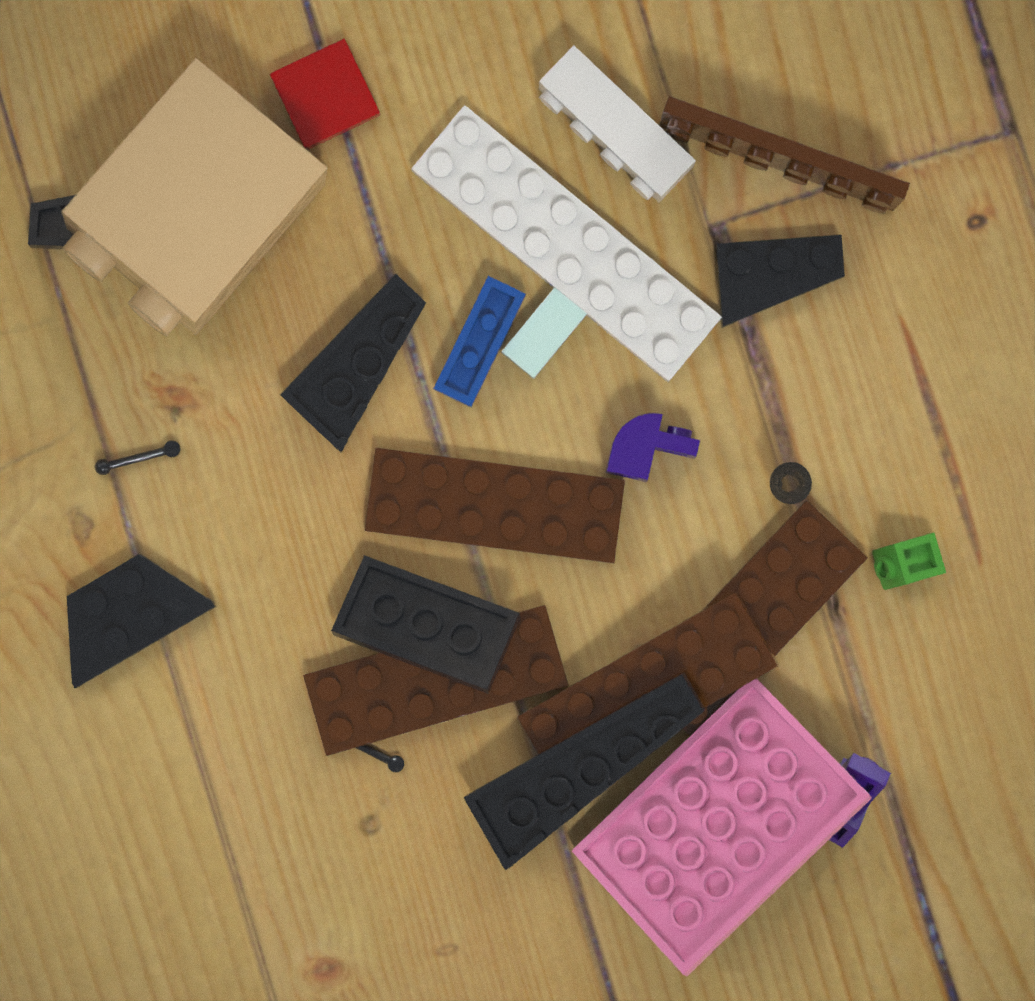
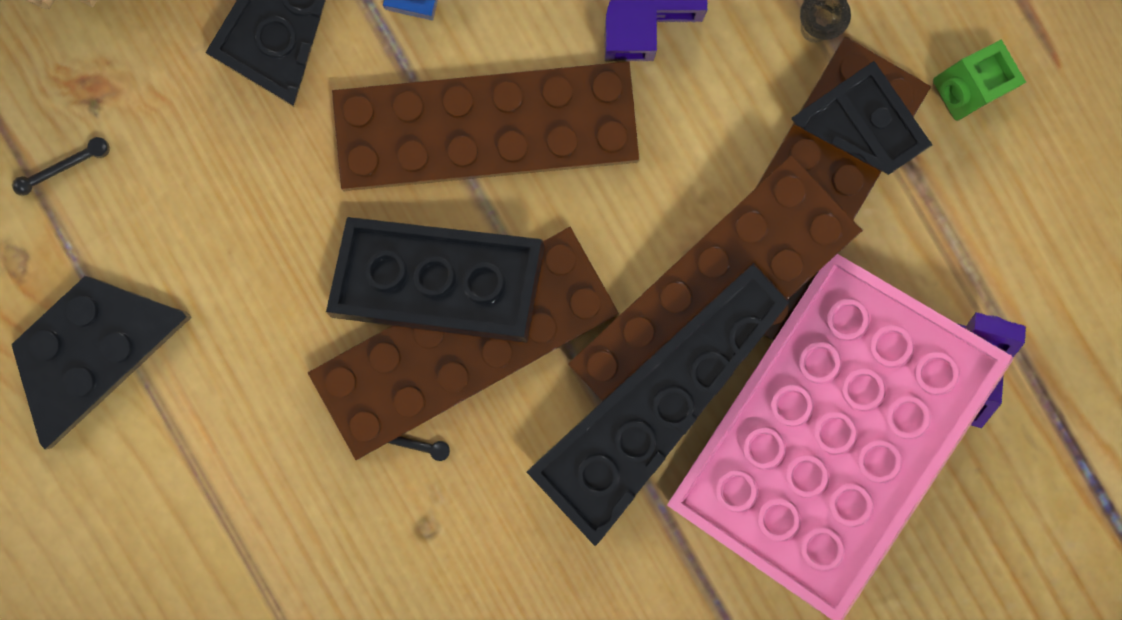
camera: 10 degrees left, 0 degrees up
(804, 577) = (866, 121): none -> black wing

